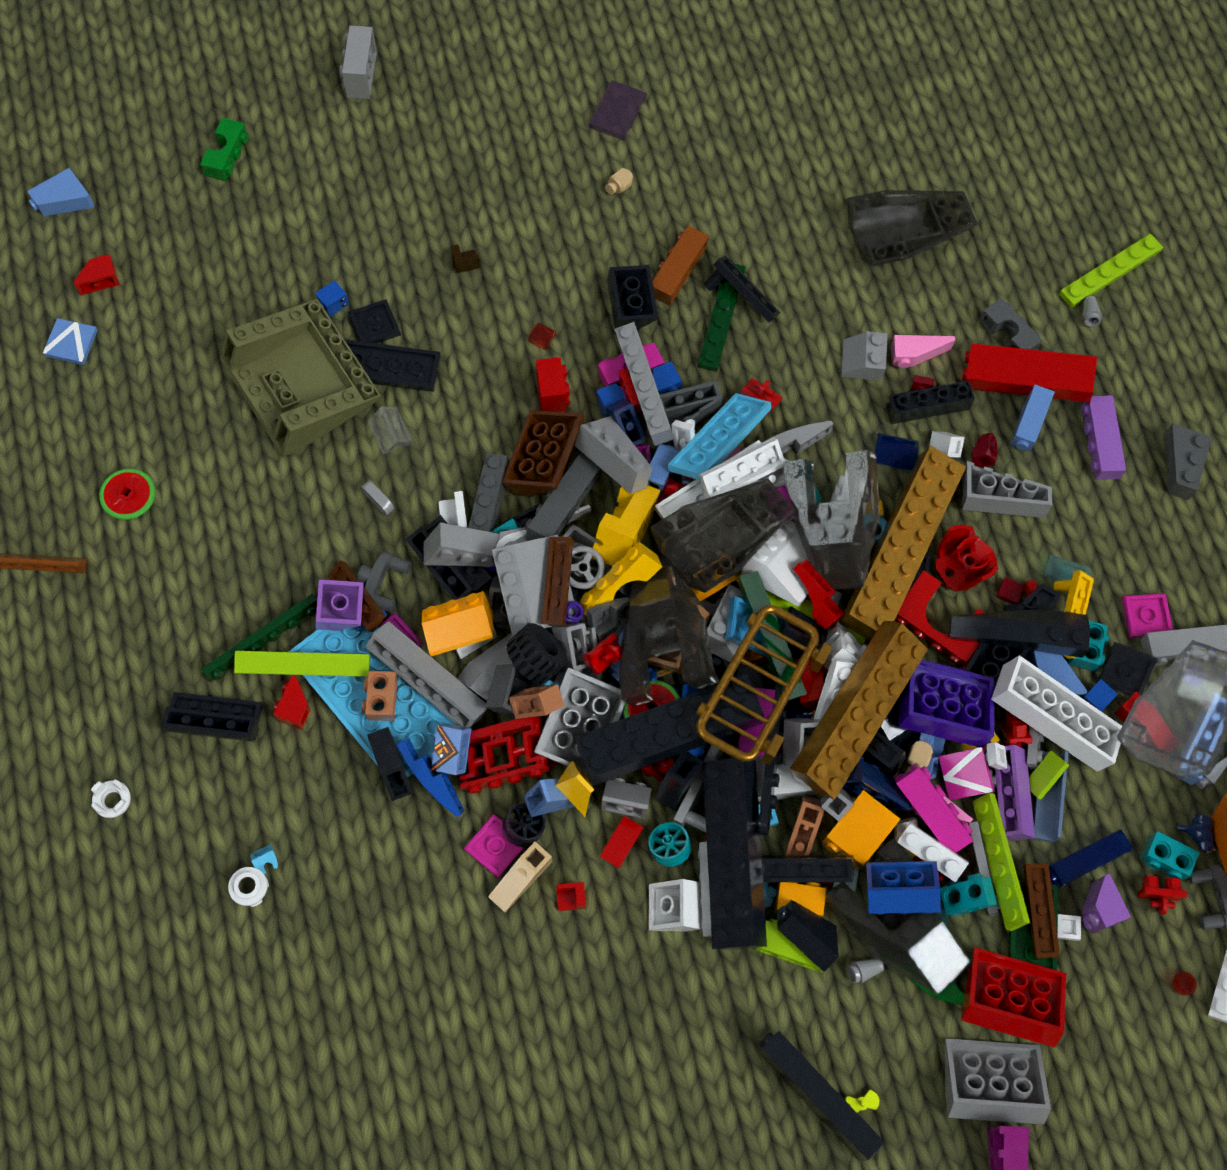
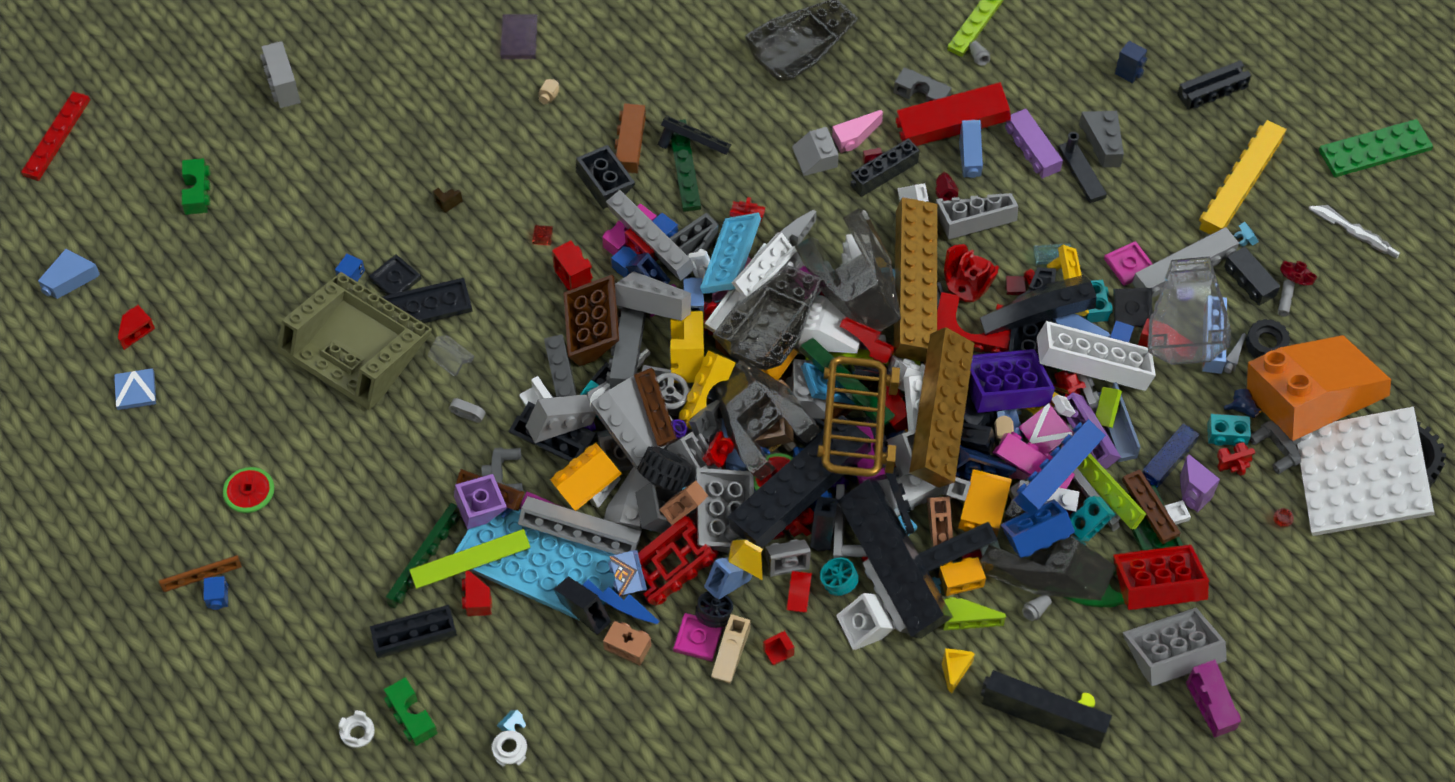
camera: 20 degrees left, 10 degrees down
(44, 591) = (215, 592): none -> blue brick
(119, 44) = (55, 136): none -> red plate
(167, 783) = (417, 726): none -> green arch
(385, 695) = (552, 556): nougat brick -> none
(423, 834) = (633, 650): none -> nougat brick
(745, 1001) = (955, 665): none -> yellow slope
(809, 933) = (981, 594): black slope -> none
(896, 451) = (880, 214): clear blue panel -> none
(957, 829) = (1059, 467): none -> blue brick
(1143, 488) = (1081, 169): none -> black piece

